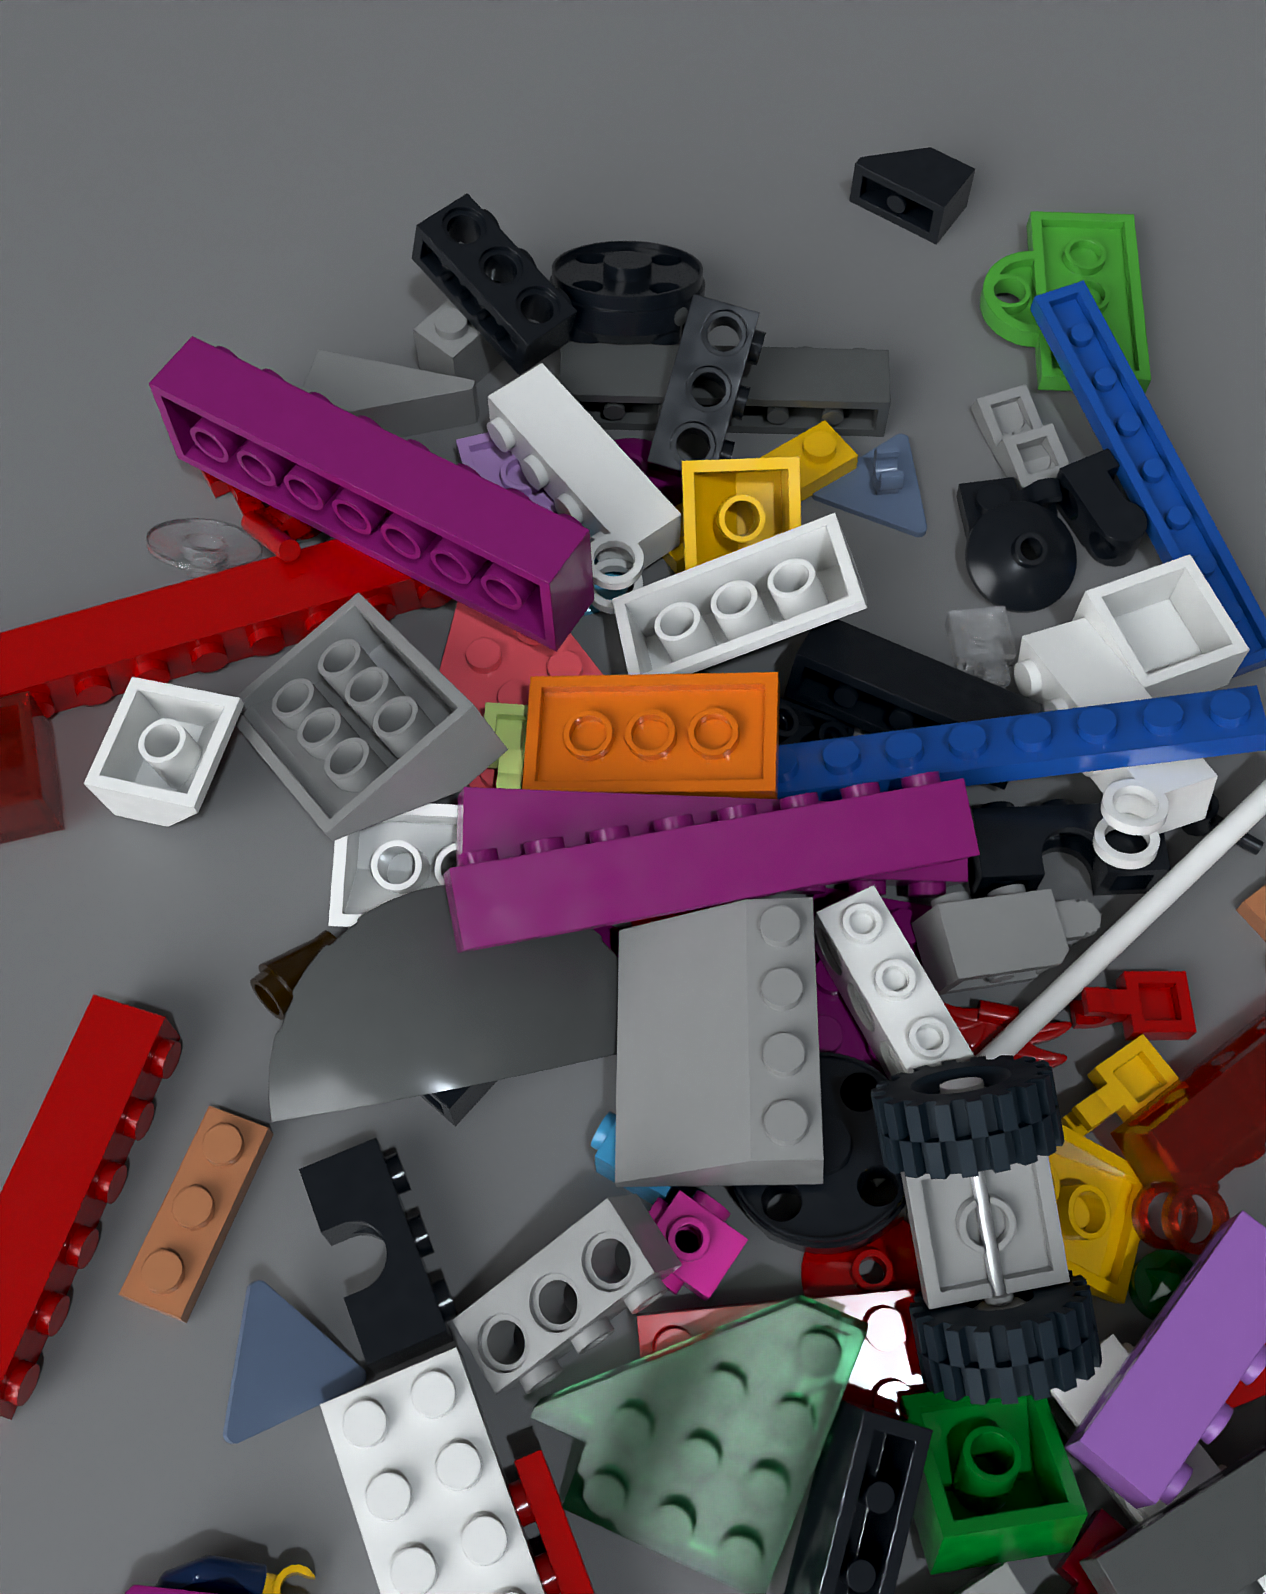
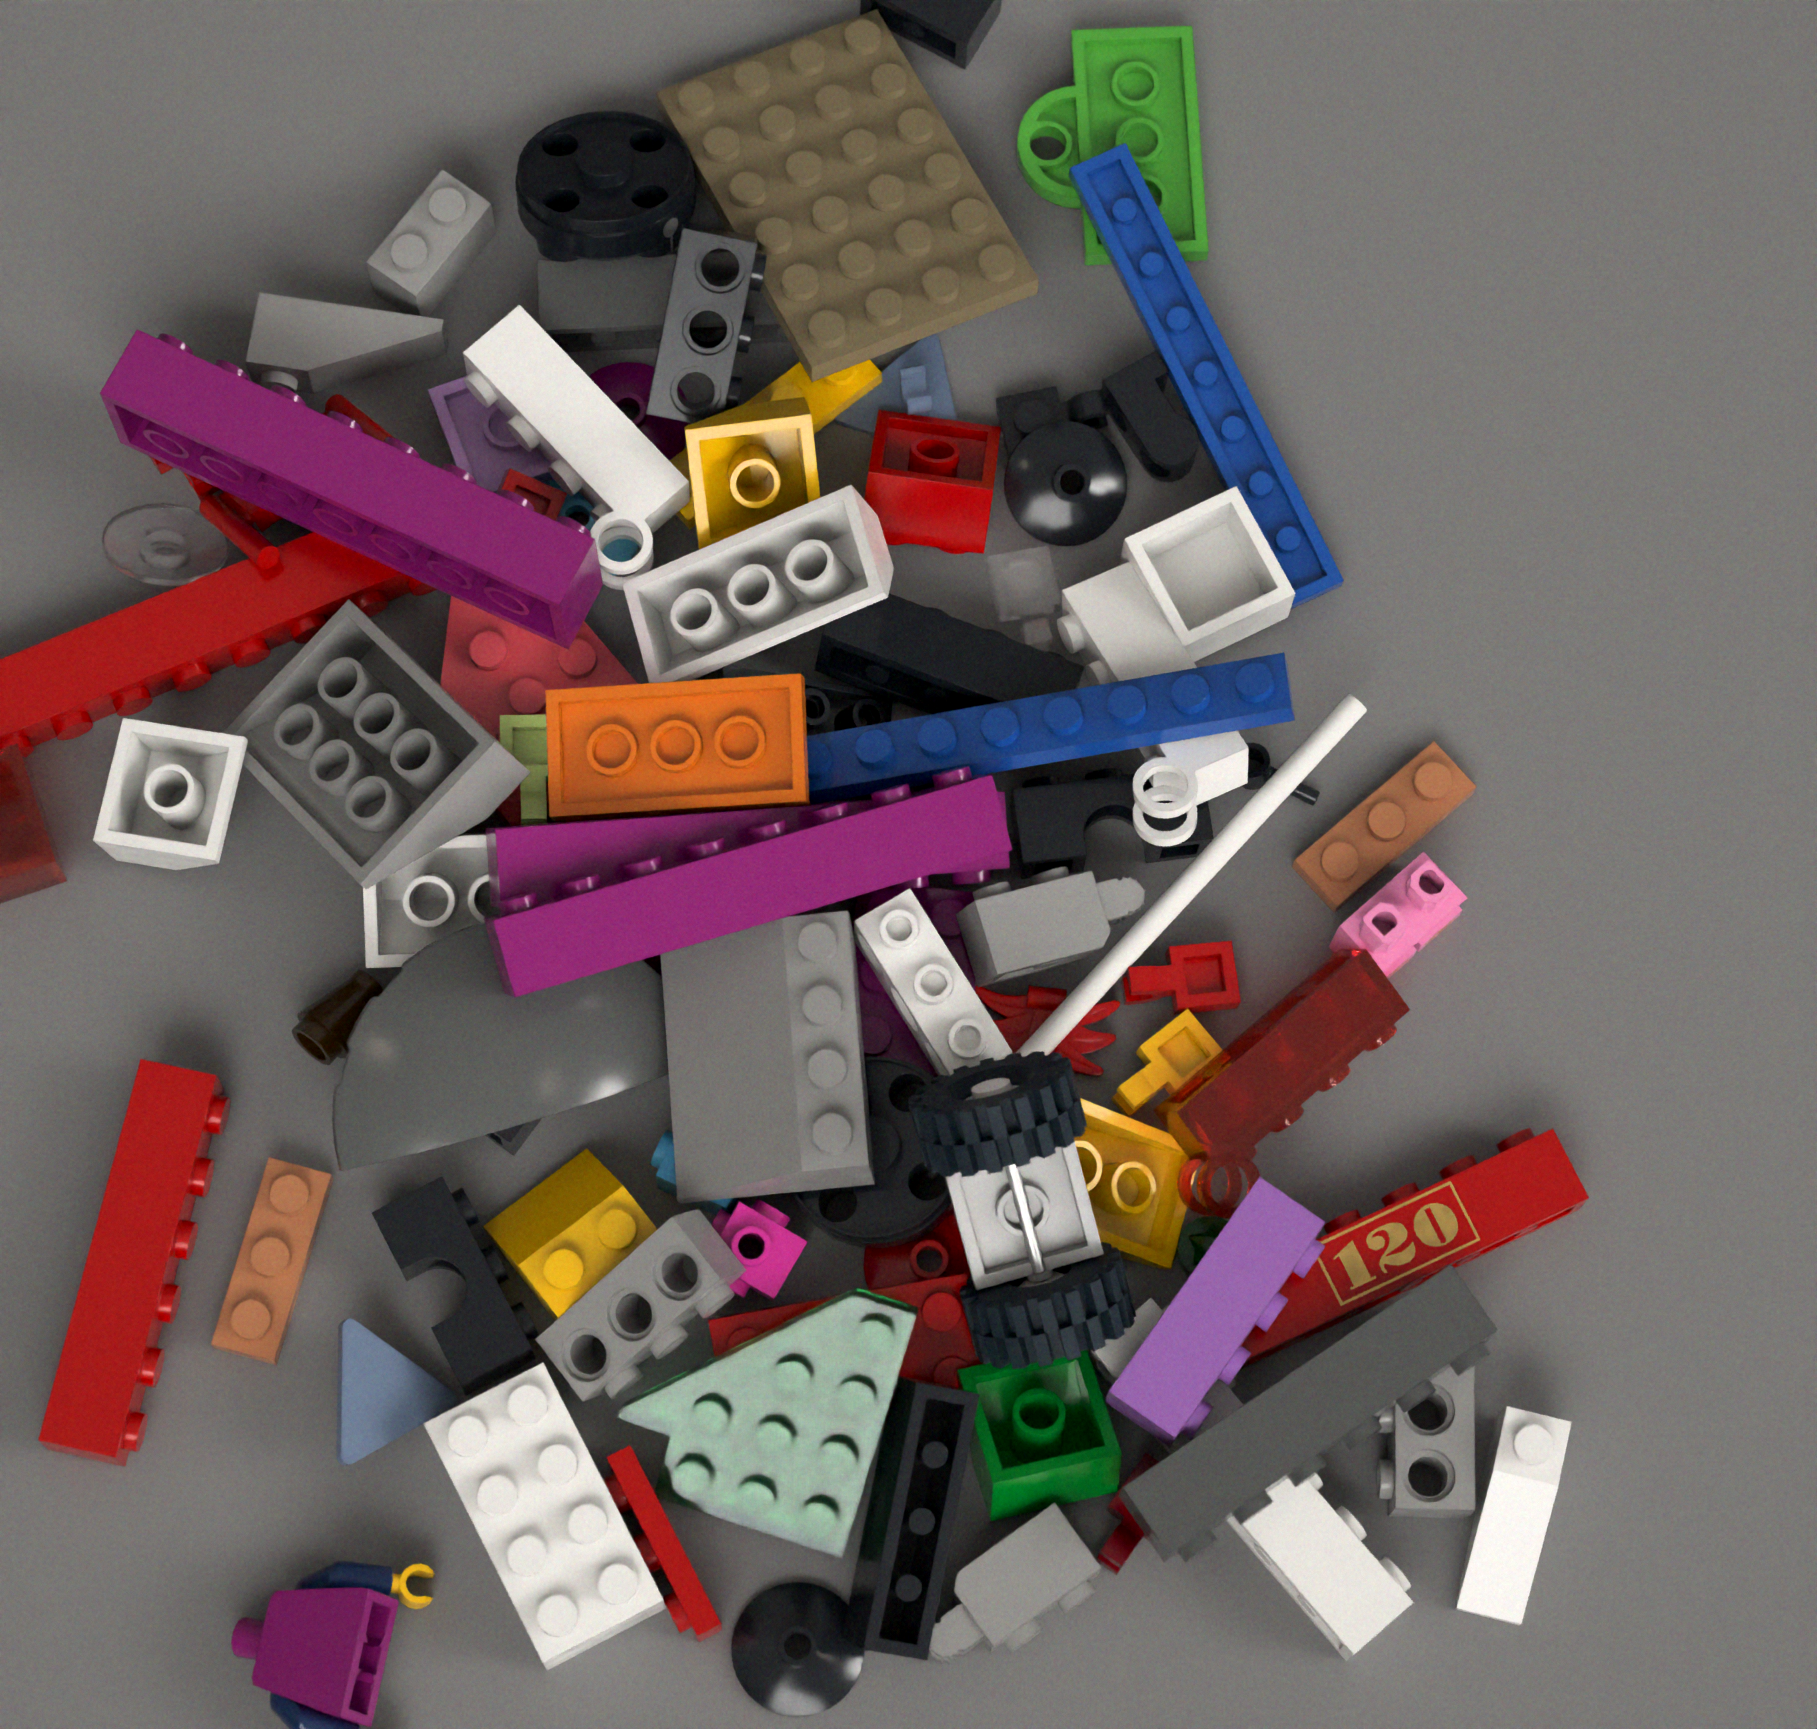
camera: 10 degrees left, 10 degrees up
(495, 309) = (455, 241): black brick -> none
(502, 1208) = (570, 1232): none -> yellow slope
(845, 314) = (850, 193): none -> dark tan plate
(904, 545) = (932, 480): none -> red slope
(1018, 436) = (1066, 334): light grey slope -> none

